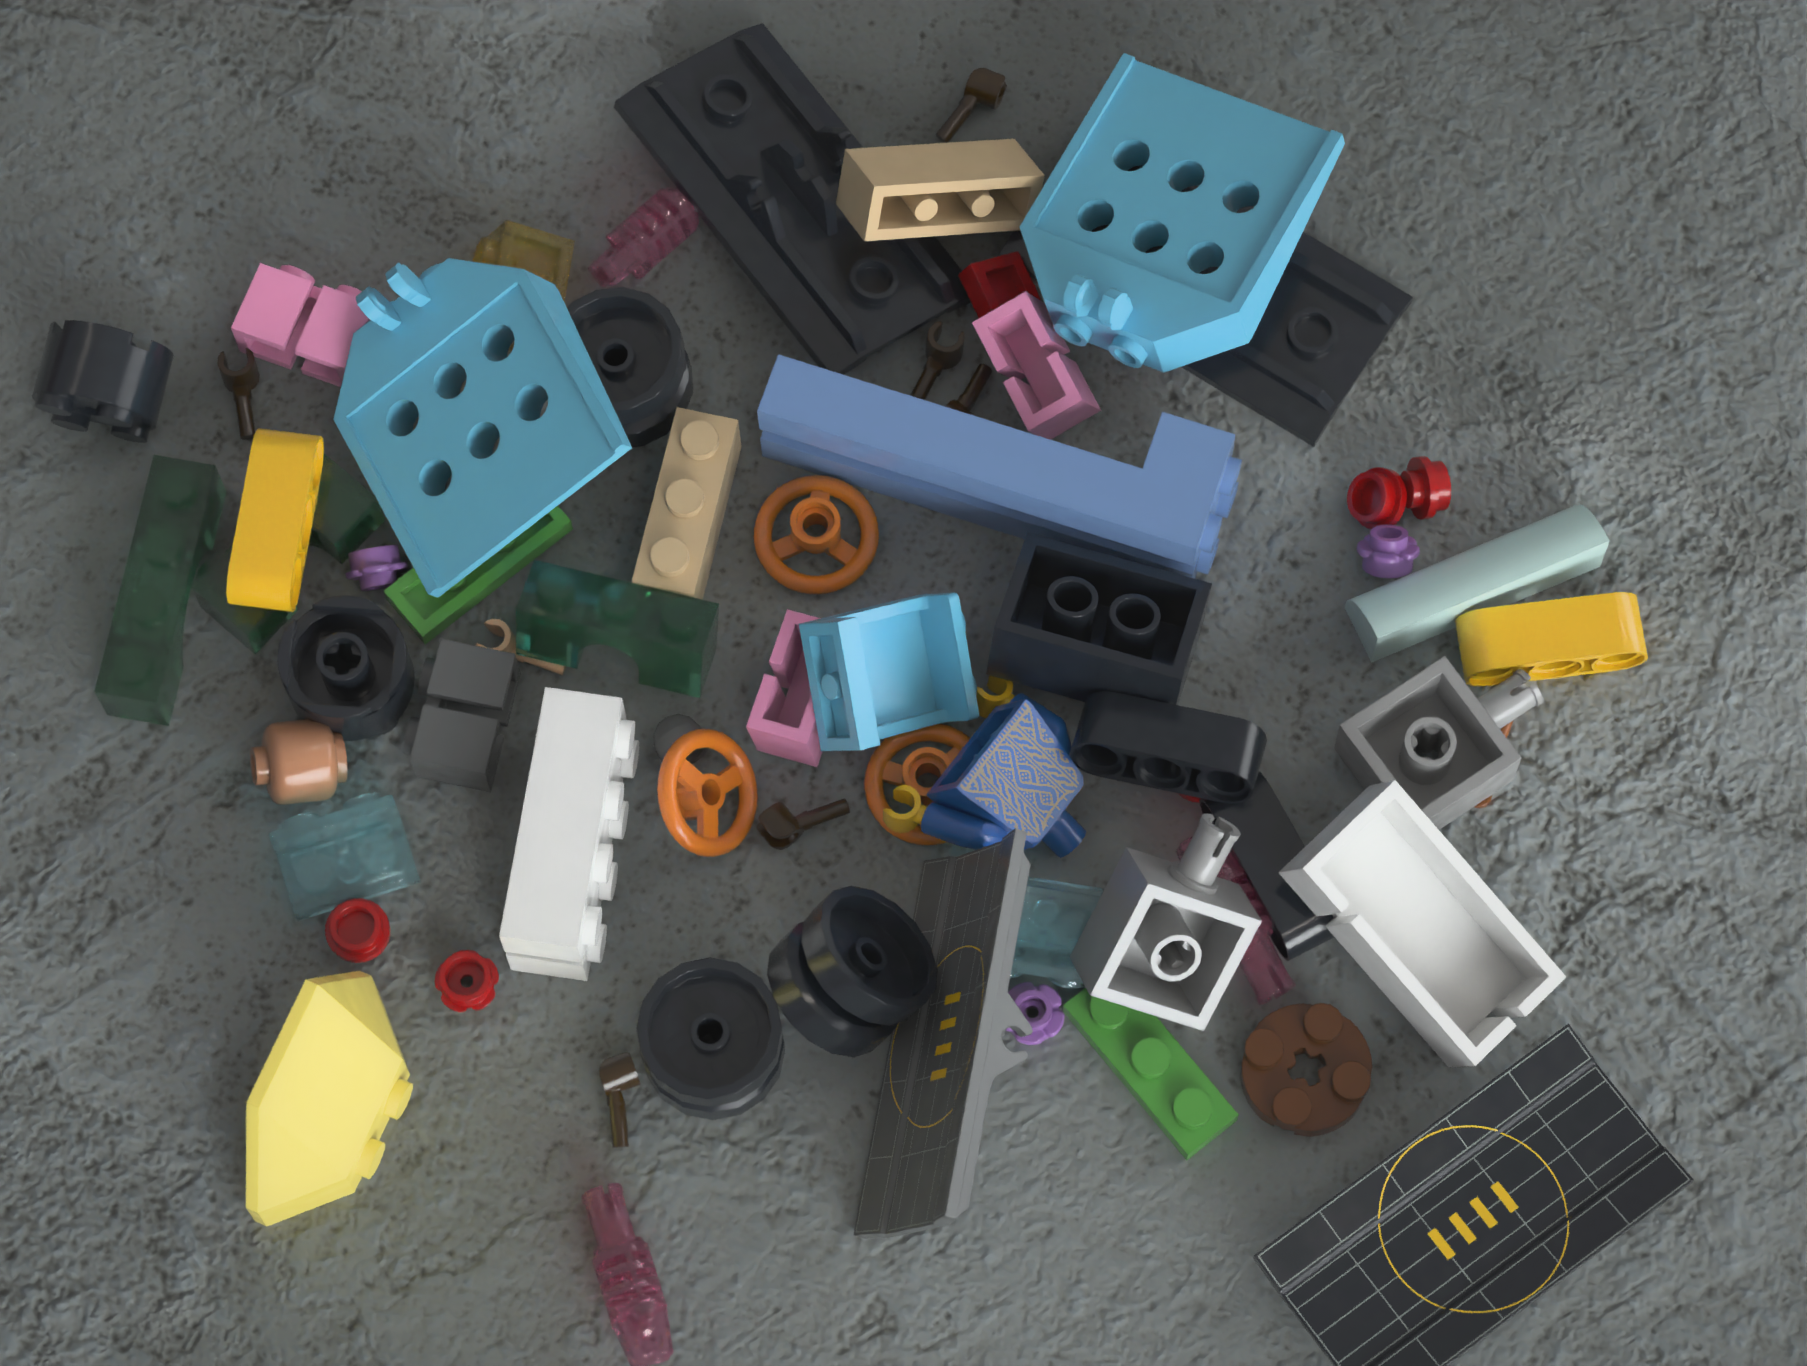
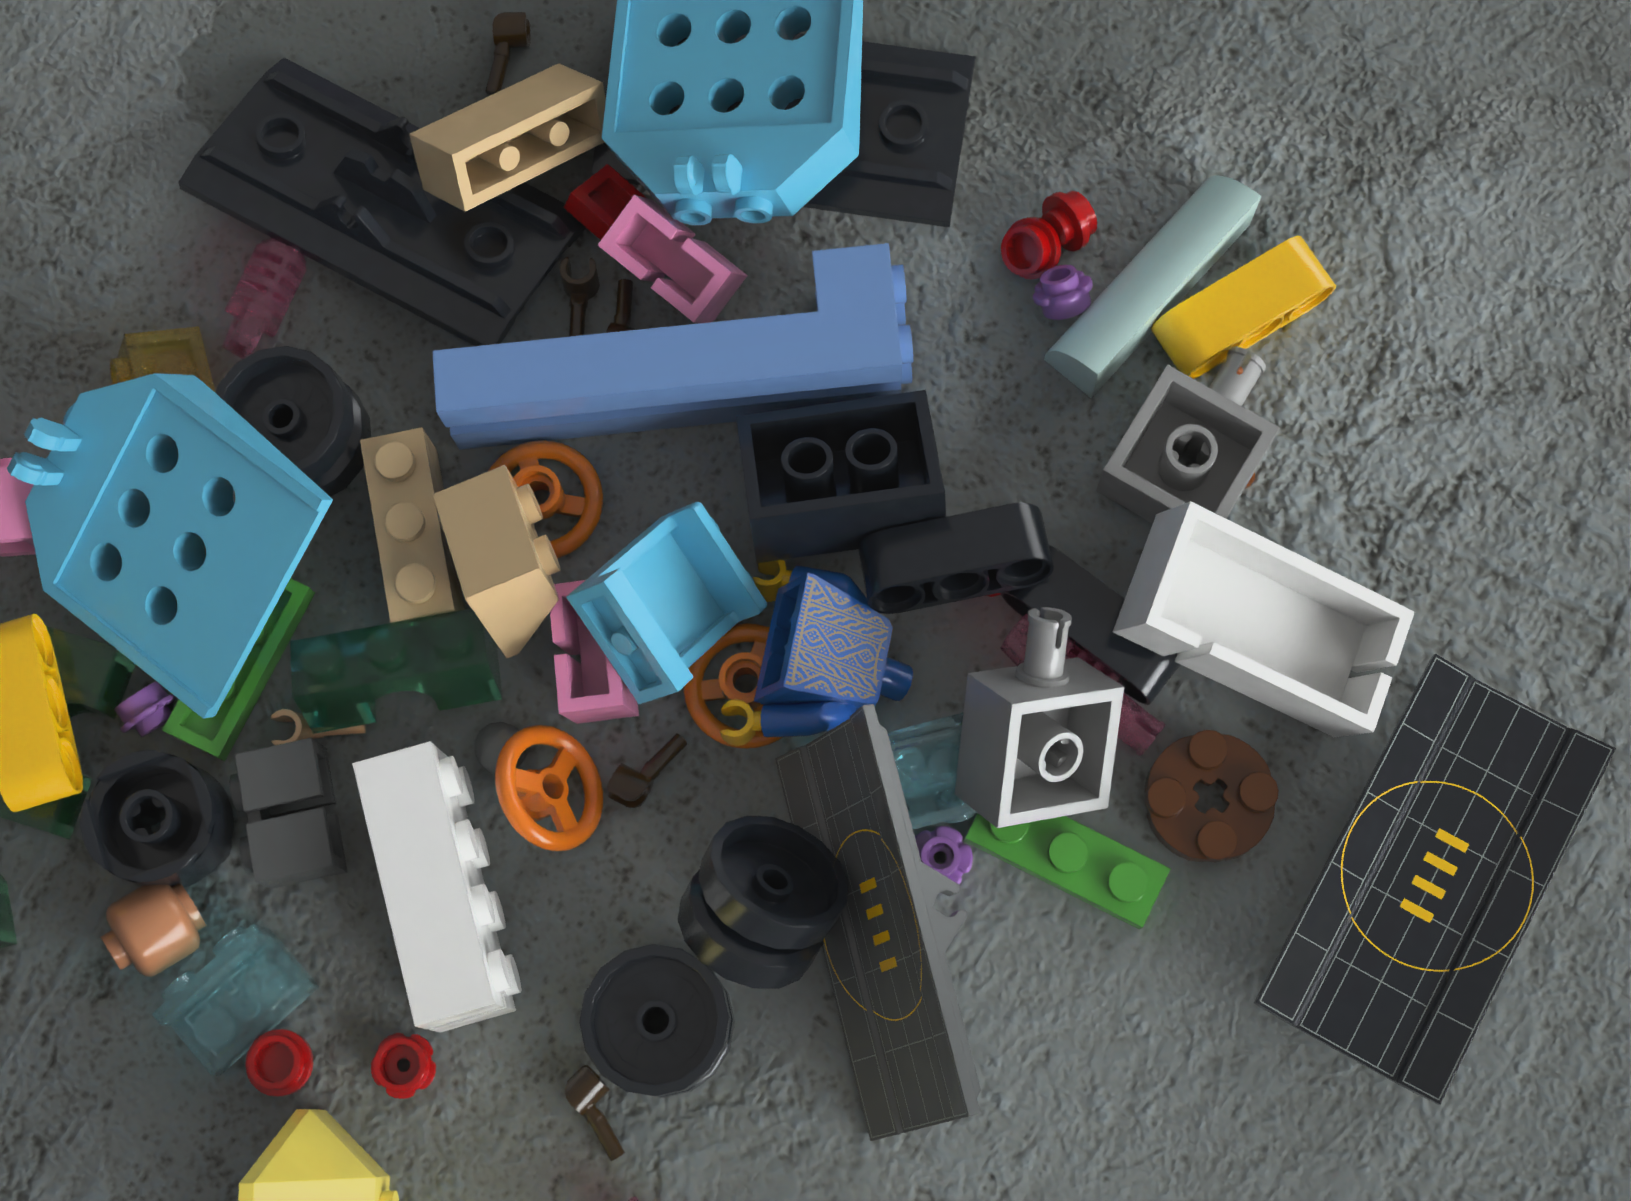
camera: 20 degrees left, 5 degrees up
(757, 564) = (499, 555): none -> tan slope

